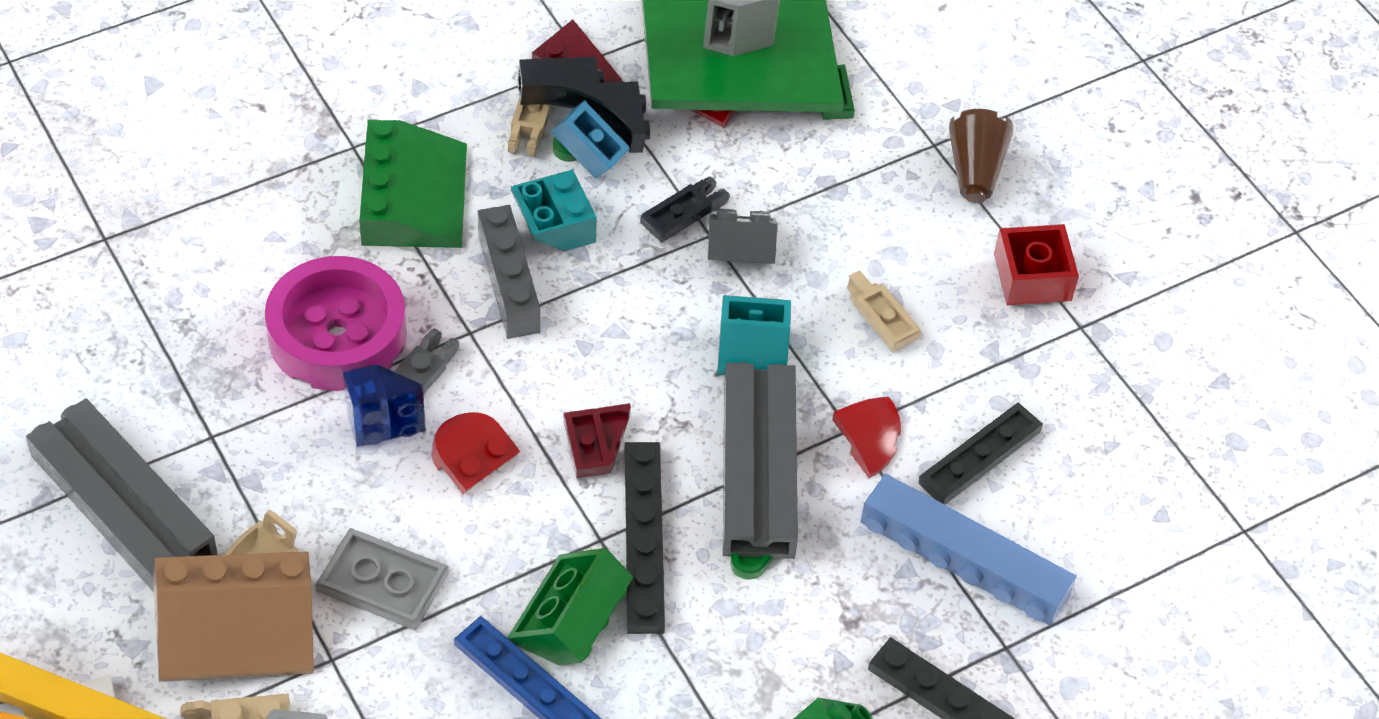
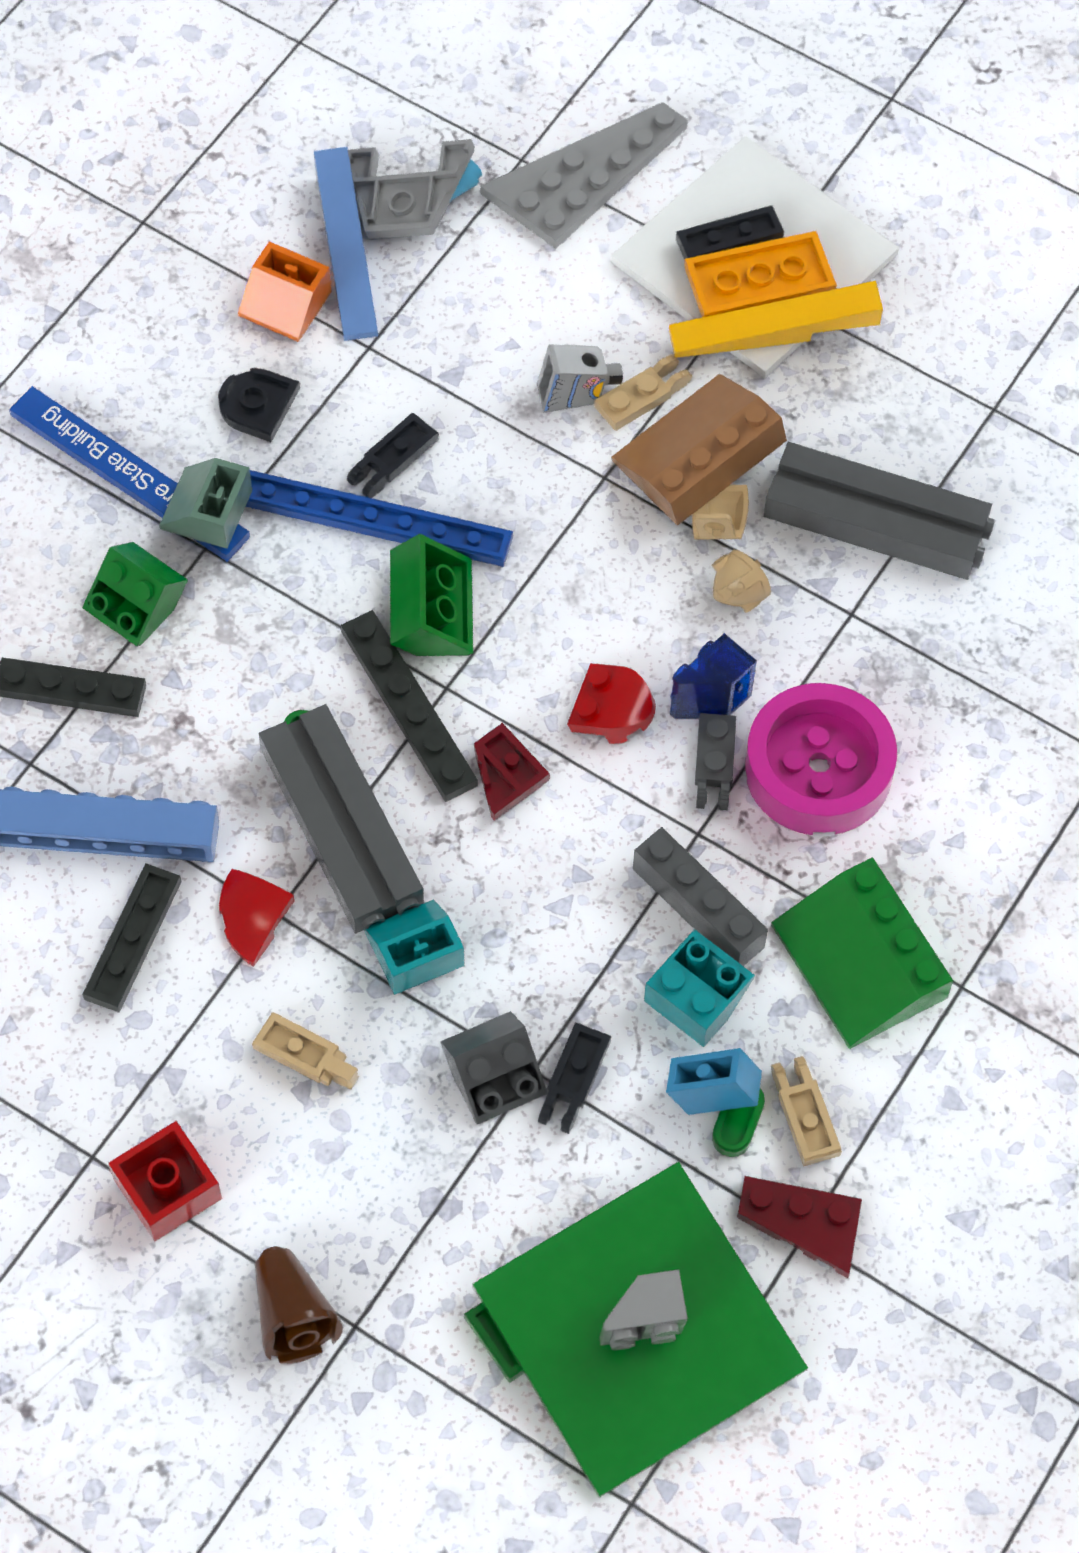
camera: 155 degrees right, 10 degrees up
(293, 486) = (740, 581): none -> tan helmet
(382, 578) = (609, 557): light grey tile -> none
(576, 80) = (769, 1148): black arch -> none

